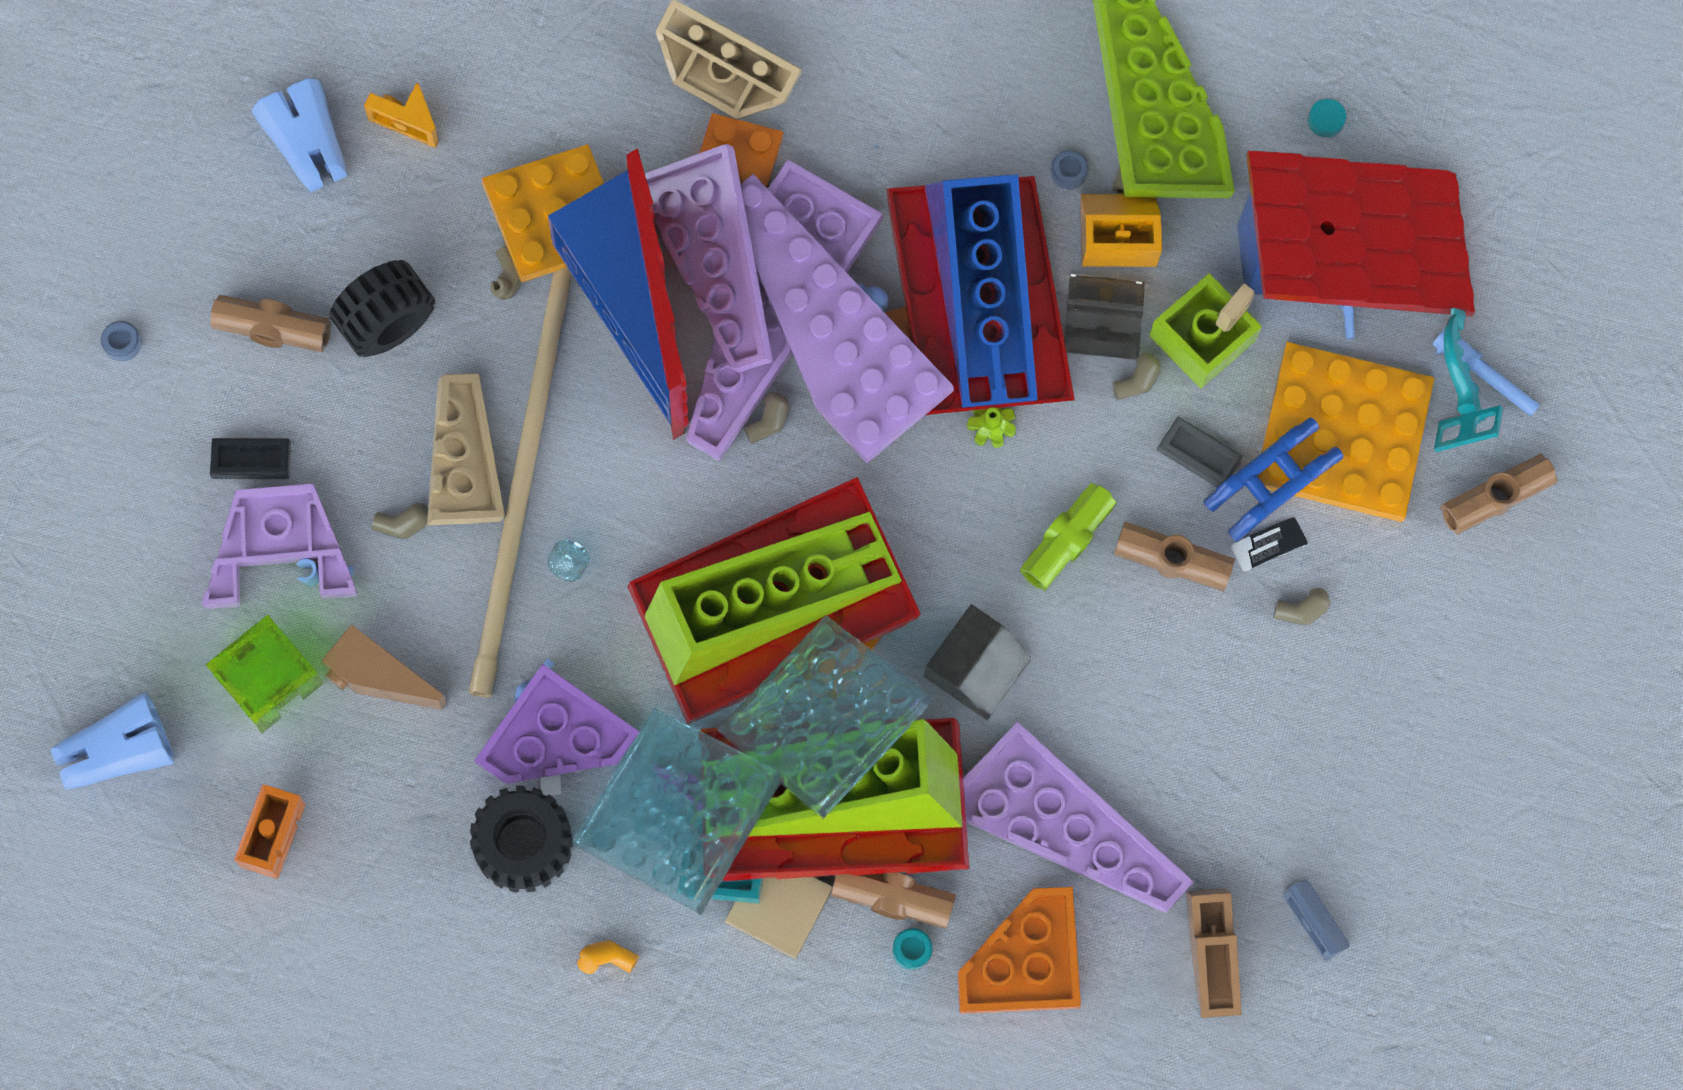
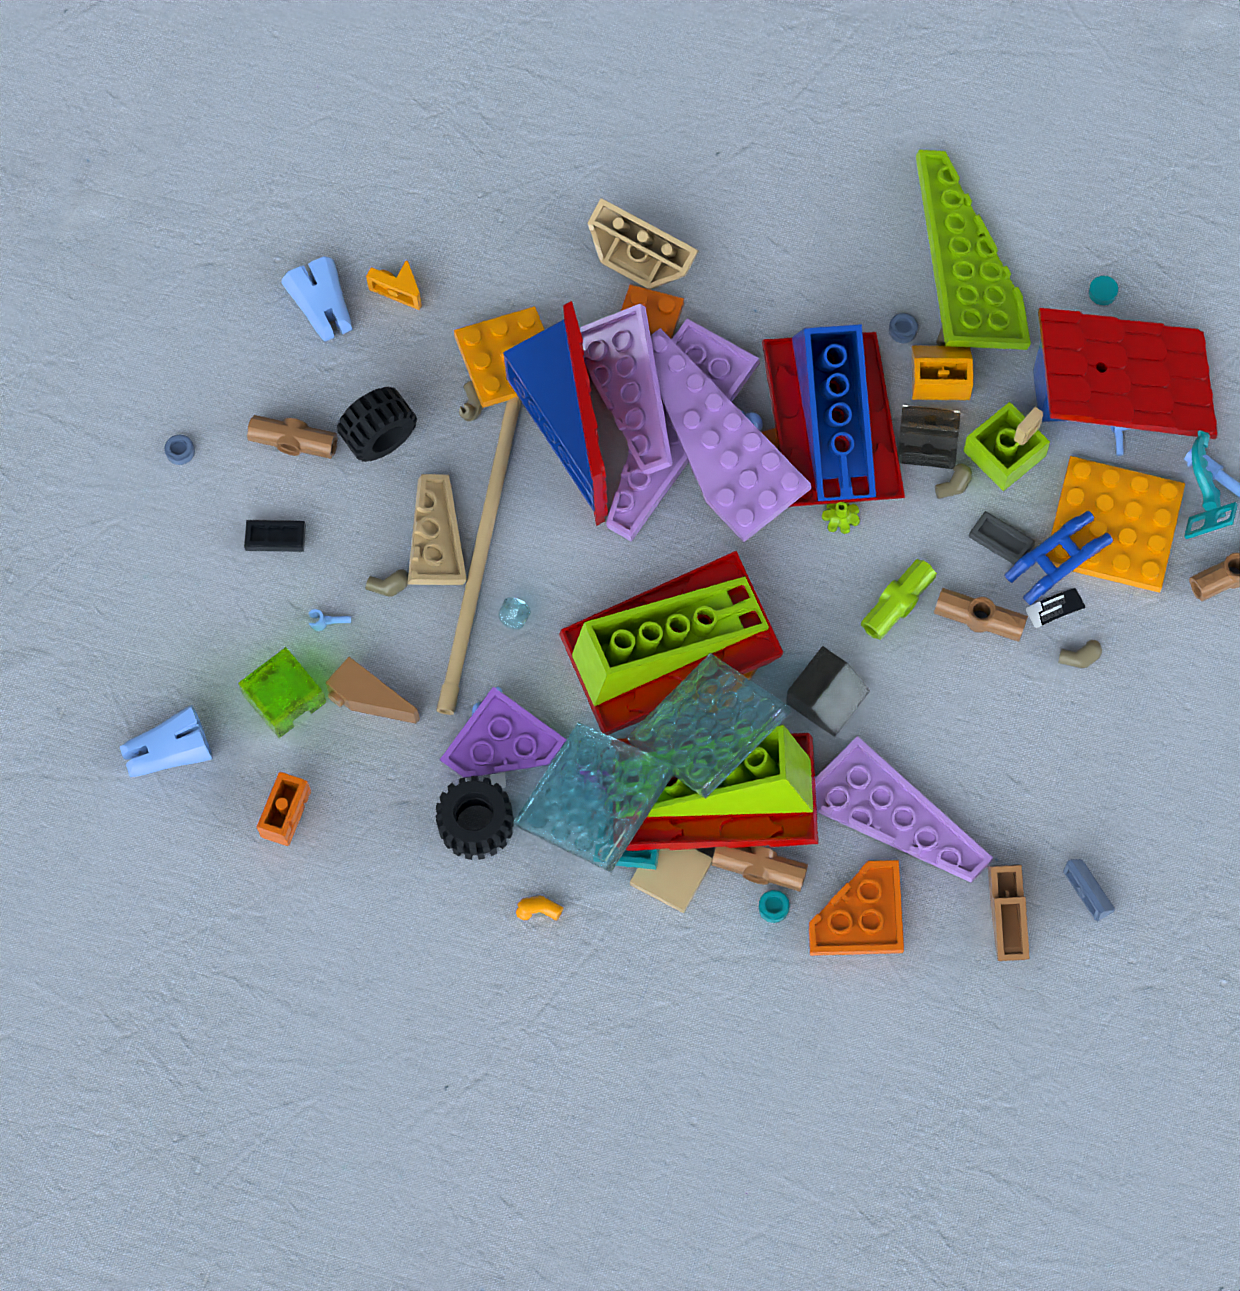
camera: 10 degrees right, 5 degrees down
(277, 528) = (293, 587): lavender wing -> none
(772, 419) = (672, 510): dark tan arm -> none

